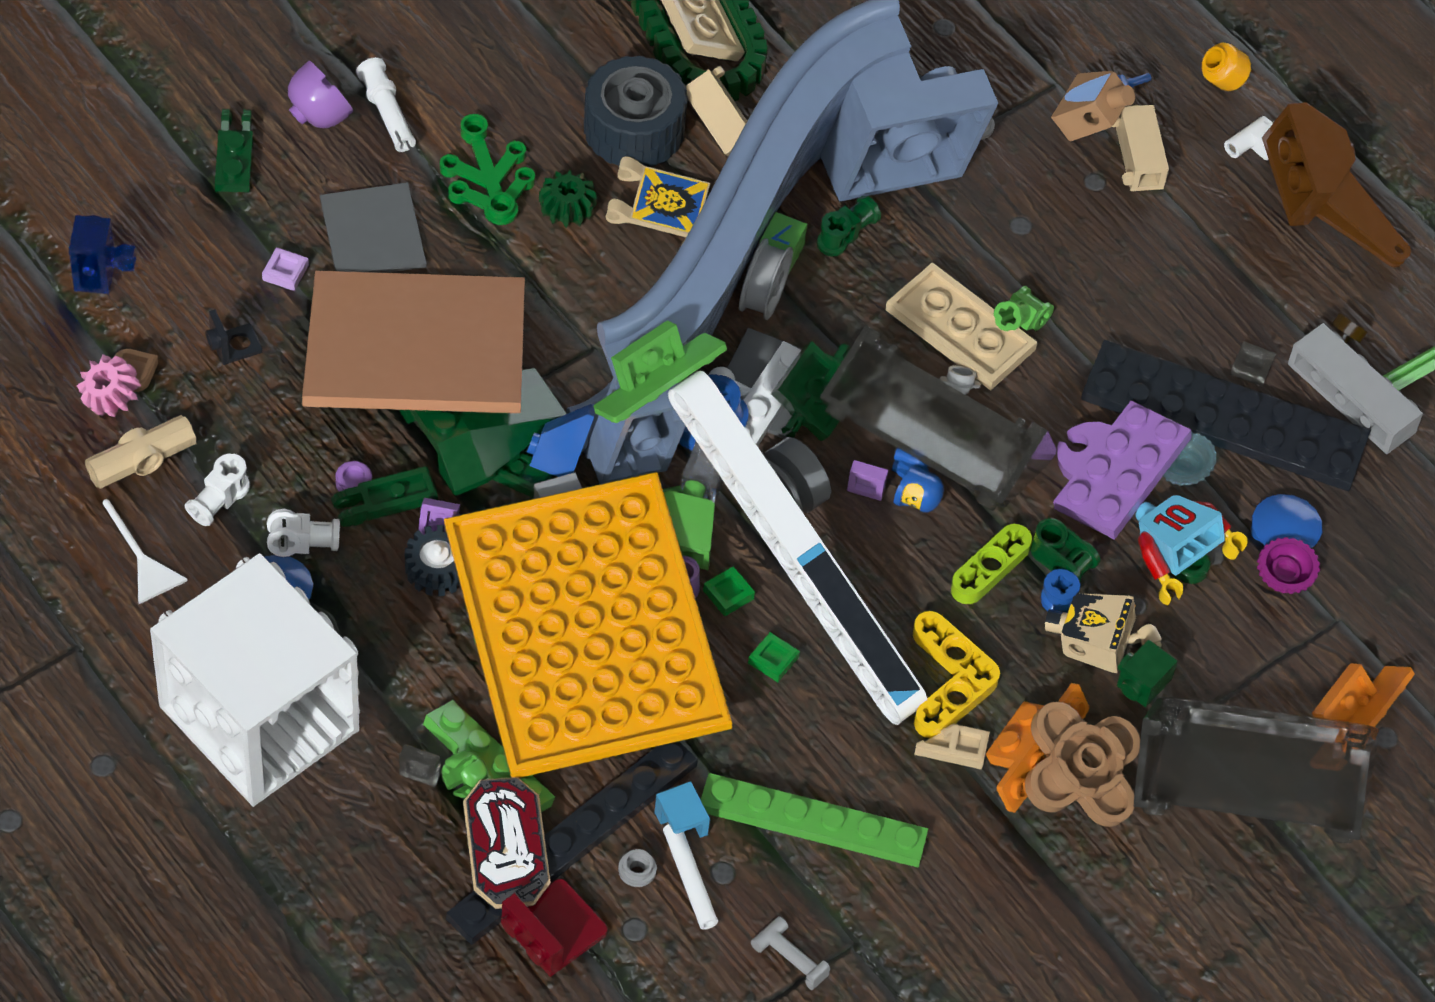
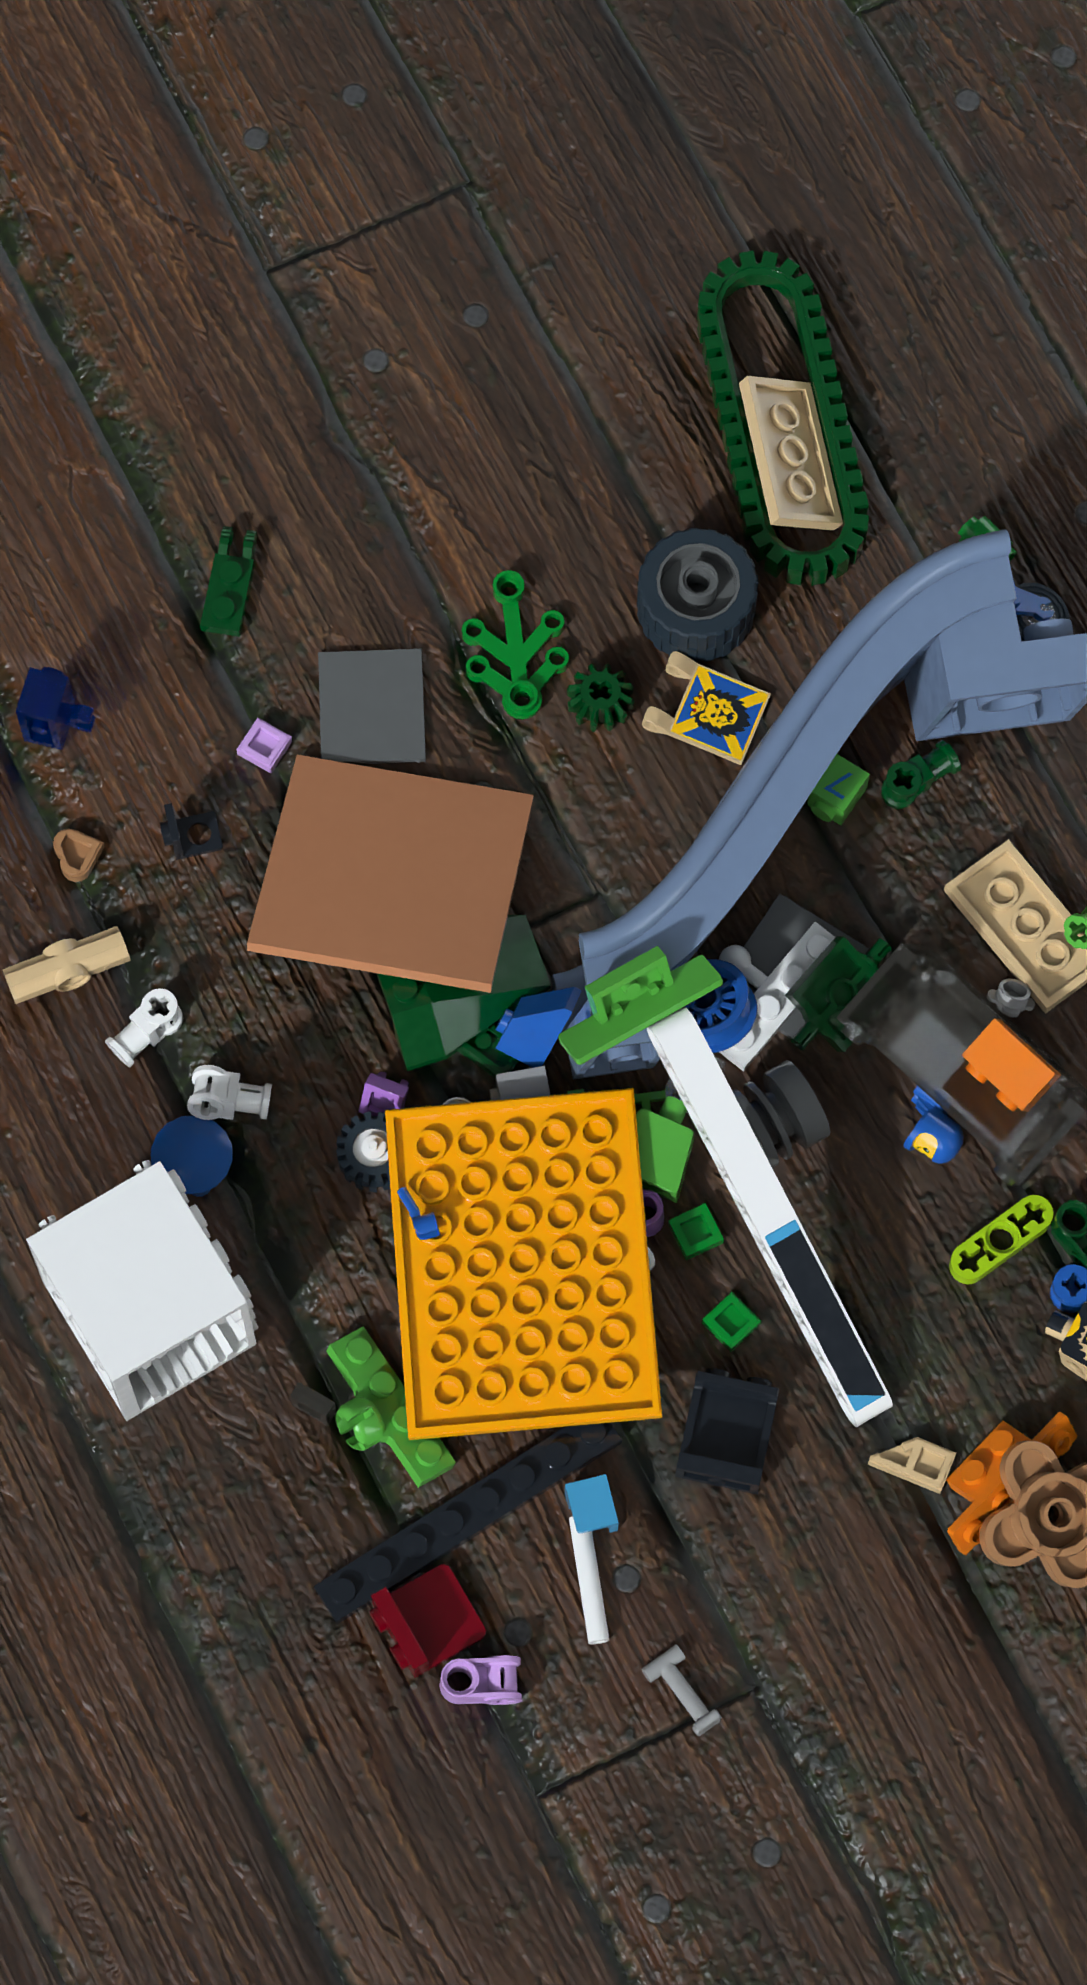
camera: 15 degrees right, 15 degrees up
(108, 385) = (45, 864): bright pink gear -> none
(152, 576) = (59, 1120): white piece -> none
(316, 98) = (332, 529): medium lavender cylinder -> none
(351, 474) = (298, 1029): medium lavender tile -> none
(382, 93) = (410, 525): white pin -> none
(384, 496) = (332, 1058): dark green hinge -> none
(495, 600) = (424, 1225): none -> blue hand
(506, 841) = (391, 1515): shield -> none
(616, 966) = (484, 1679): none -> lavender piece
(640, 859) = (532, 1549): light grey plate -> none
(716, 108) = (795, 612): tan brick -> none
(765, 279) = (807, 842): light grey wheel -> none
(788, 740) = (727, 1431): none -> black panel
(814, 820) = (738, 1531): bright green plate -> none
(867, 480) = (878, 1115): medium lavender tile -> none
(963, 673) = (939, 1385): yellow beam -> none
(972, 421) = (1010, 1066): none -> orange brick

